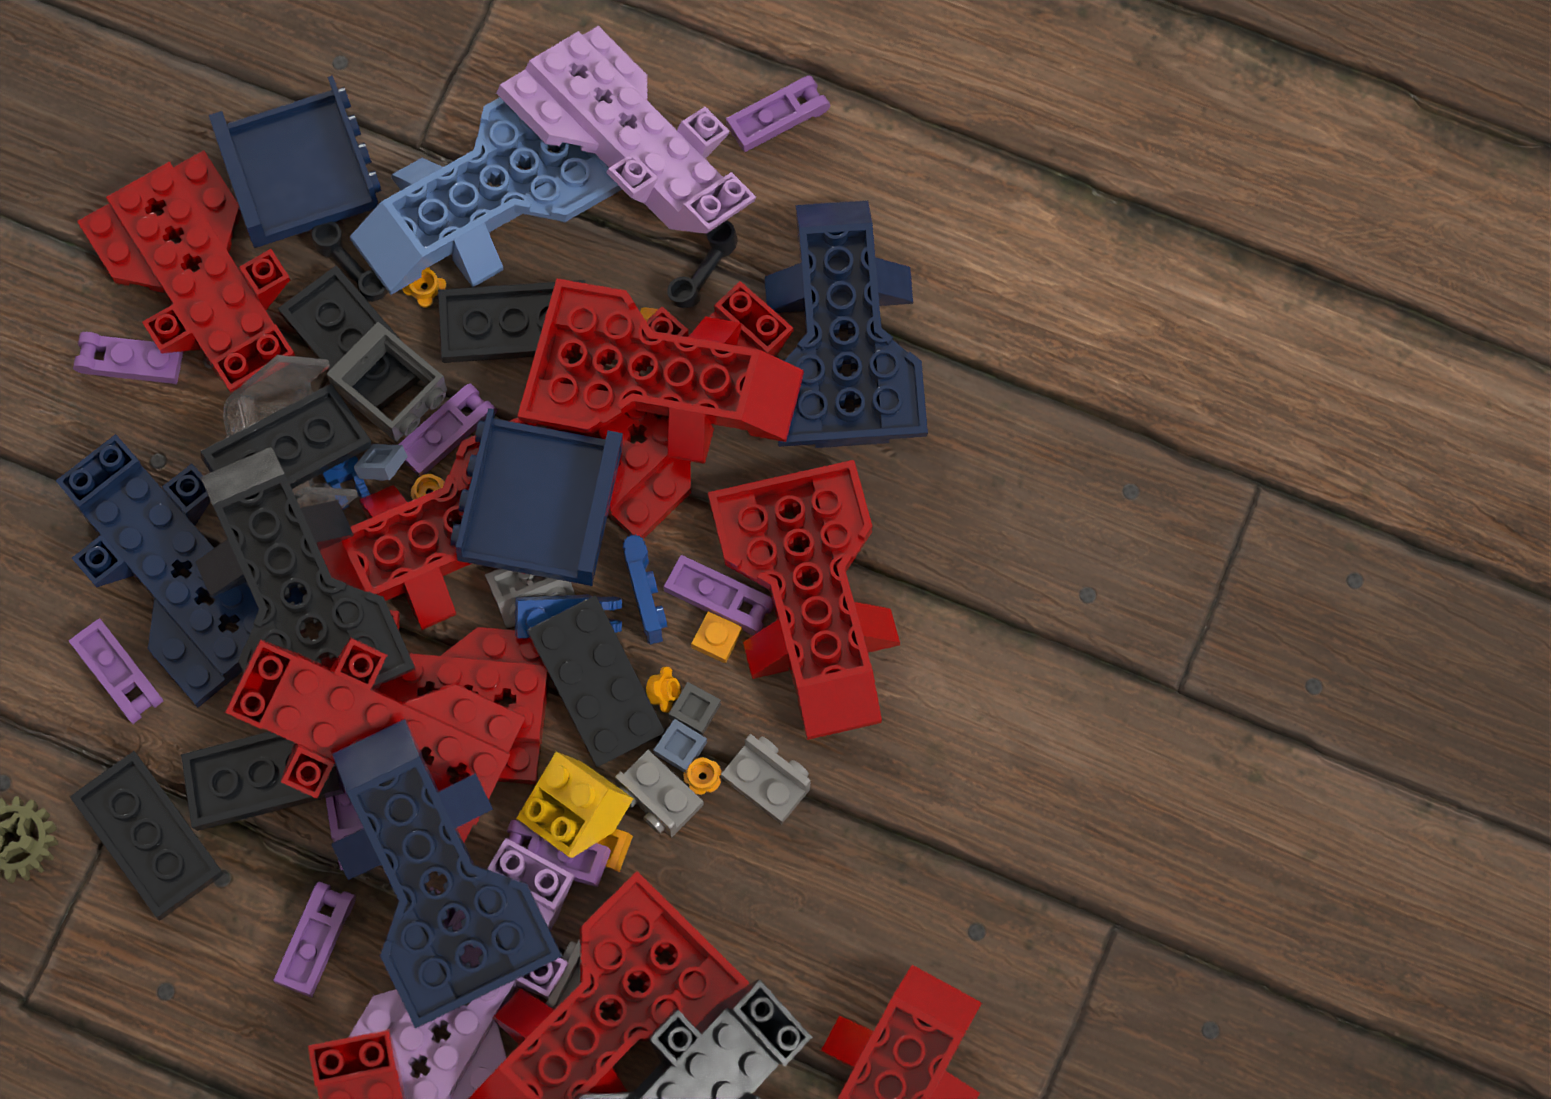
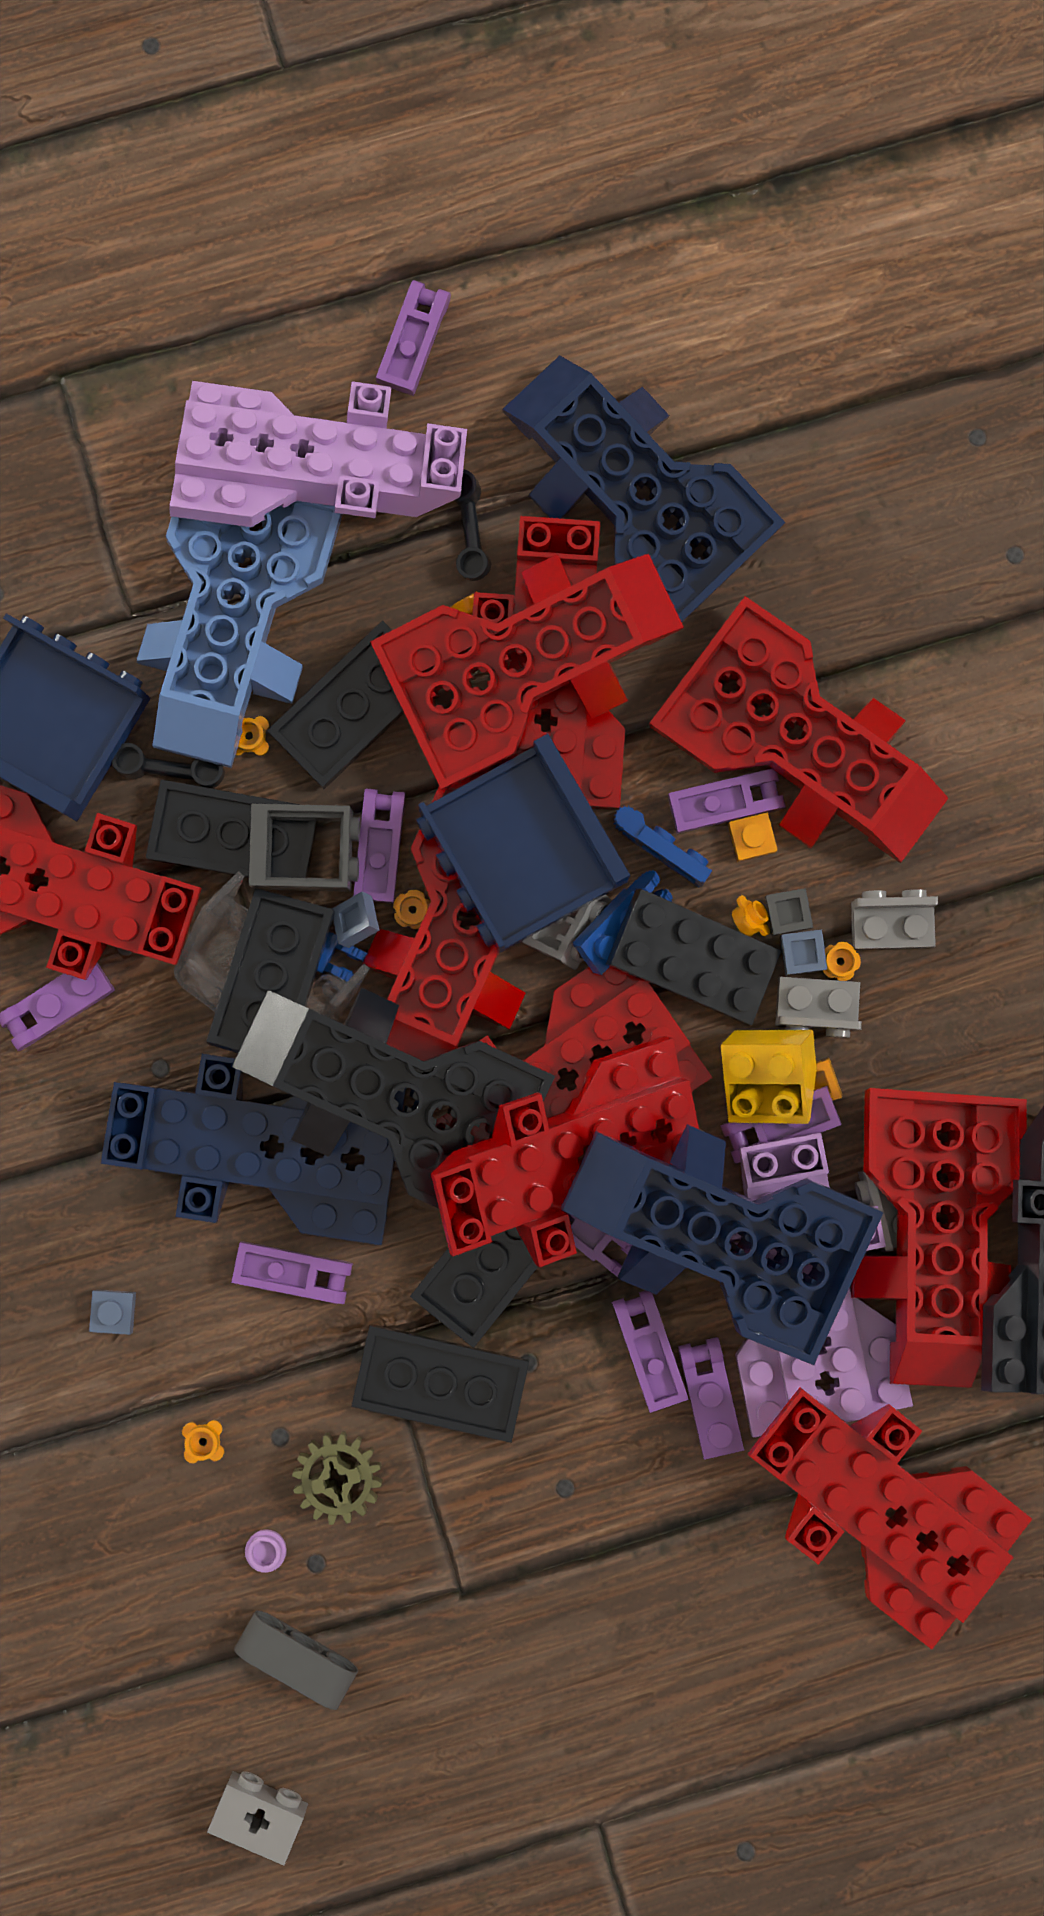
camera: 40 degrees left, 15 degrees up
(328, 1008) = (711, 1400): none -> medium lavender plate

